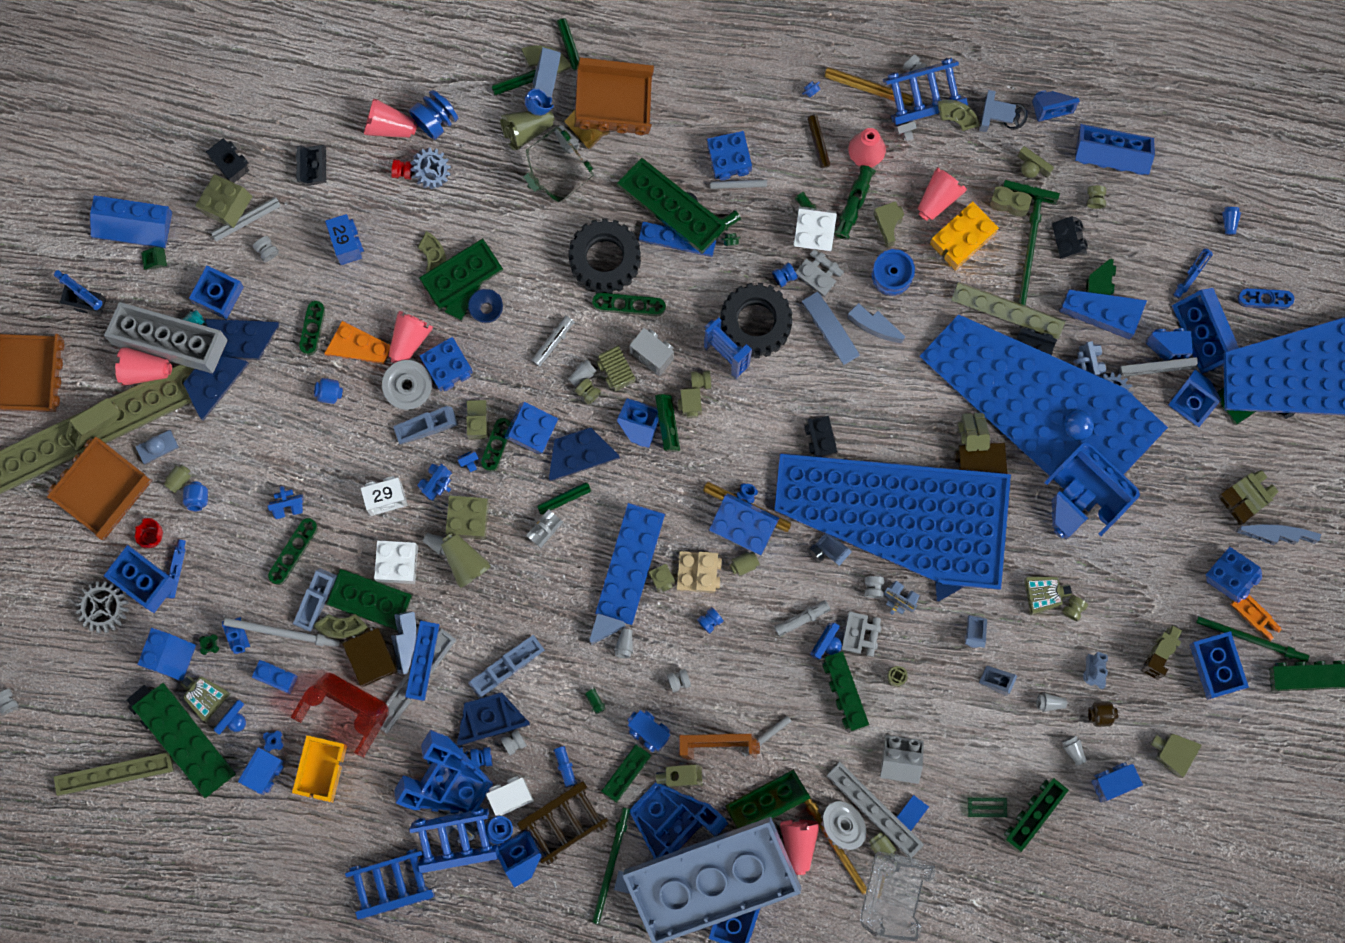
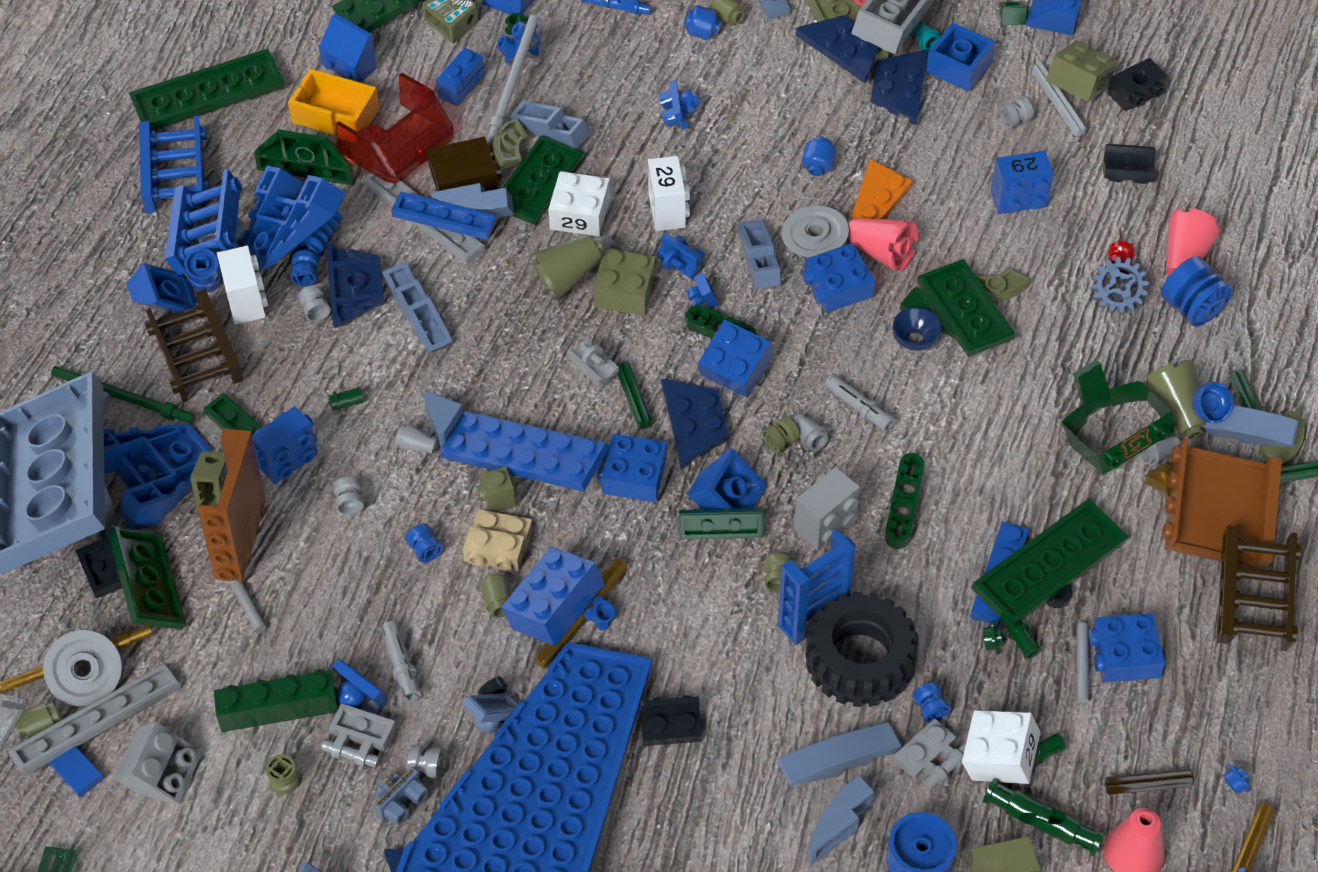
camera: 100 degrees right, 25 degrees down
(232, 719) = (420, 35): blue tile -> none
(278, 741) = (383, 73): blue plate -> none
(290, 550) = (612, 113): dark green beam -> none
(307, 878) = (207, 89): none -> dark green plate
(314, 342) = (890, 142): dark green beam -> none
(372, 779) = (303, 156): none -> dark green wedge
(477, 419) = (756, 307): olive arch -> none
(565, 766) = (267, 356): blue pin -> none
(600, 232) = (978, 440): black tyre -> none
(616, 368) = (804, 469): olive brick -> none
(632, 486) = (633, 467): none -> blue brick
(666, 91) = (1231, 598): none -> dark brown fence
(690, 403) = (747, 556): olive brick -> none
(799, 843) = (78, 608): coral cone -> none

